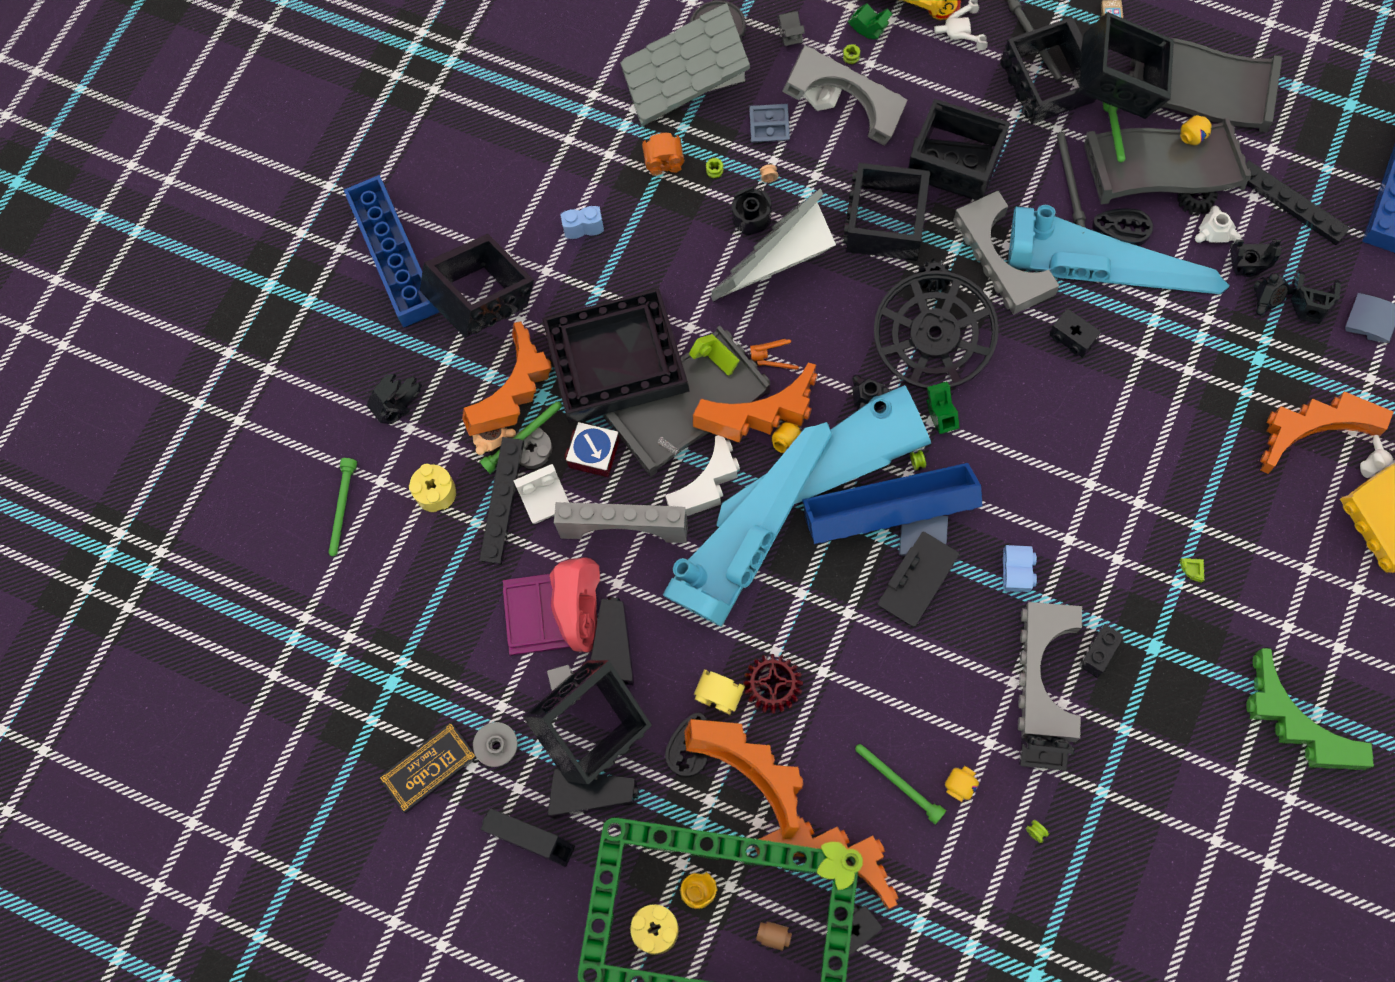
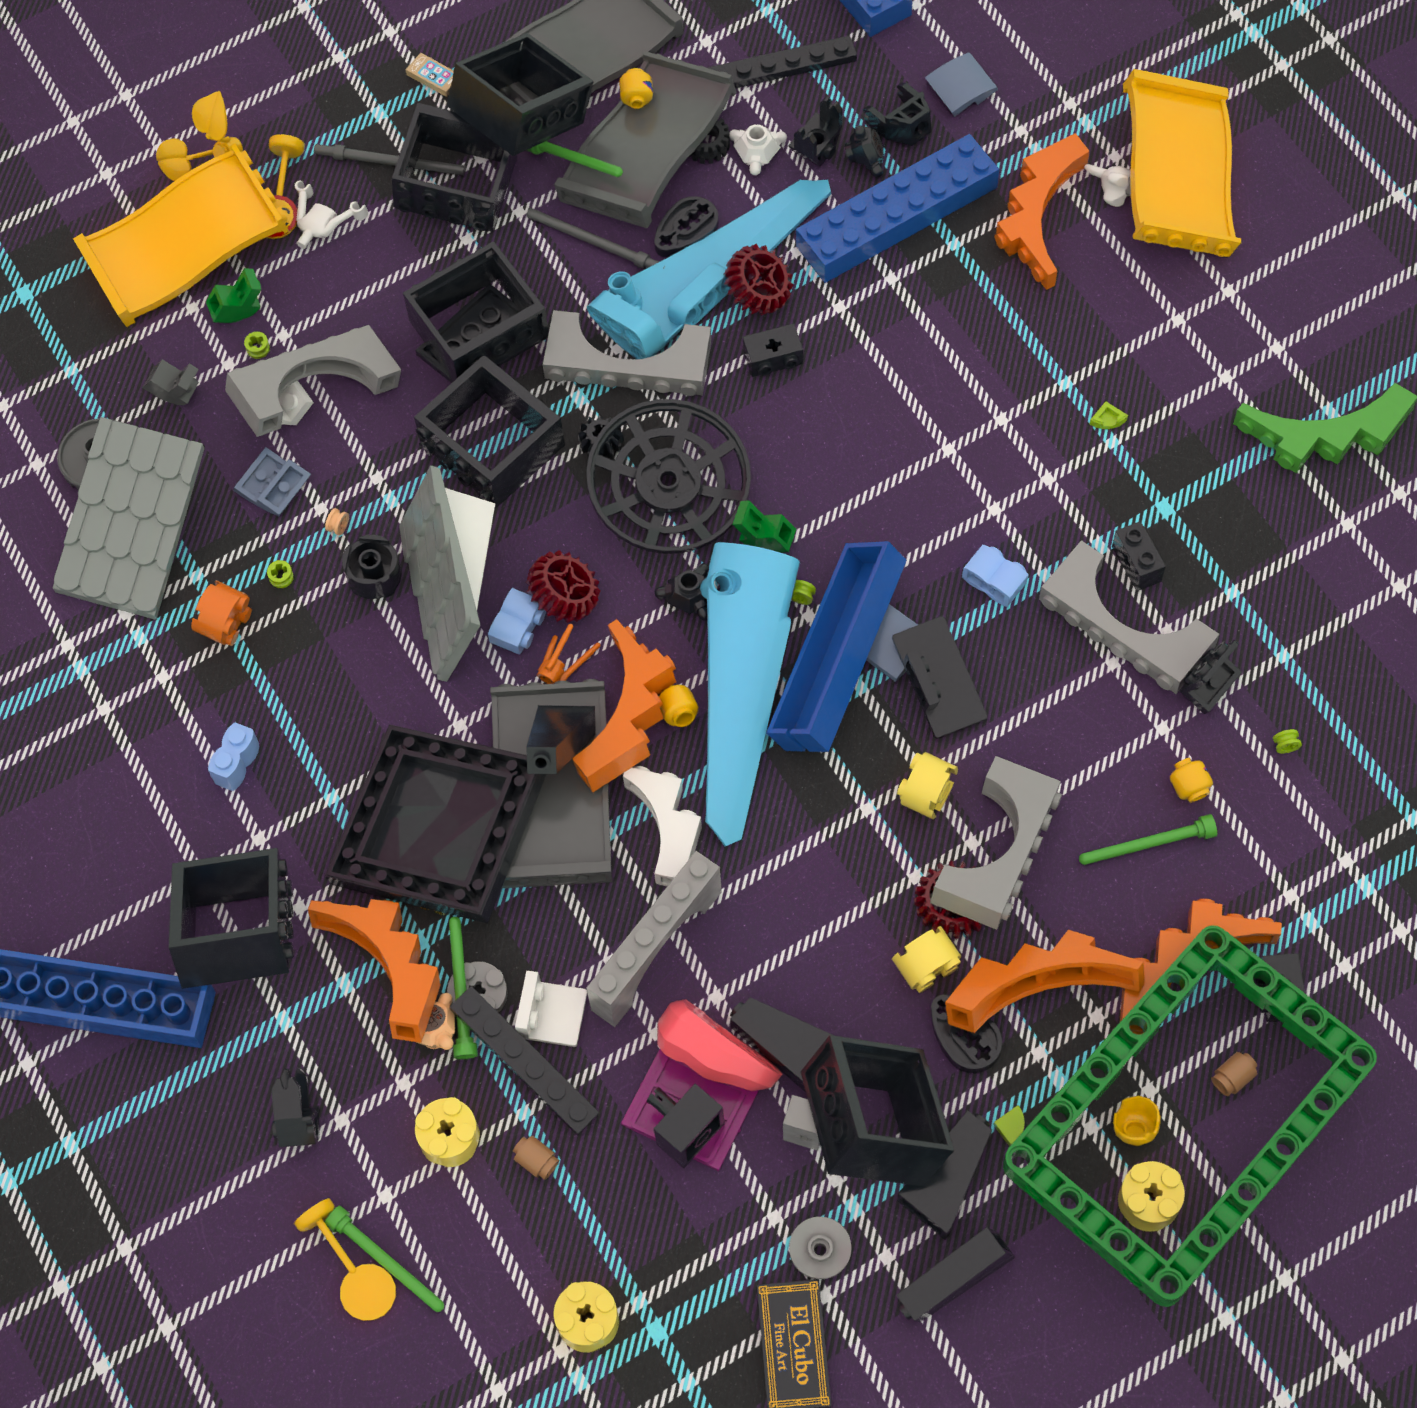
camera: 60 degrees left, 5 degrees down
(318, 507) = (366, 1289): none -> yellow piece
(381, 642) = (578, 1300): none -> light yellow brick
(450, 546) = (535, 1157): none -> medium nougat brick
(516, 616) = (687, 1123): none -> black brick
(592, 449) = (535, 921): piece -> none
(648, 812) = (1010, 1125): none -> lime tile
(662, 442) = (587, 836): clear piece -> none
(707, 380) = (558, 736): none -> black slope
(716, 351) = (519, 711): lime bracket -> none
(734, 552) = (771, 831): medium azure panel -> none
(776, 311) = (516, 622): none -> light blue brick
(785, 700) = (986, 890): none -> light grey arch
(824, 333) = (563, 586): none -> dark red gear
(835, 864) = (1210, 948): lime plate -> none
(836, 617) = (927, 784): none -> light yellow brick
(1117, 282) = (770, 291): none -> dark red gear
(1243, 339) = (897, 208): none -> blue brick

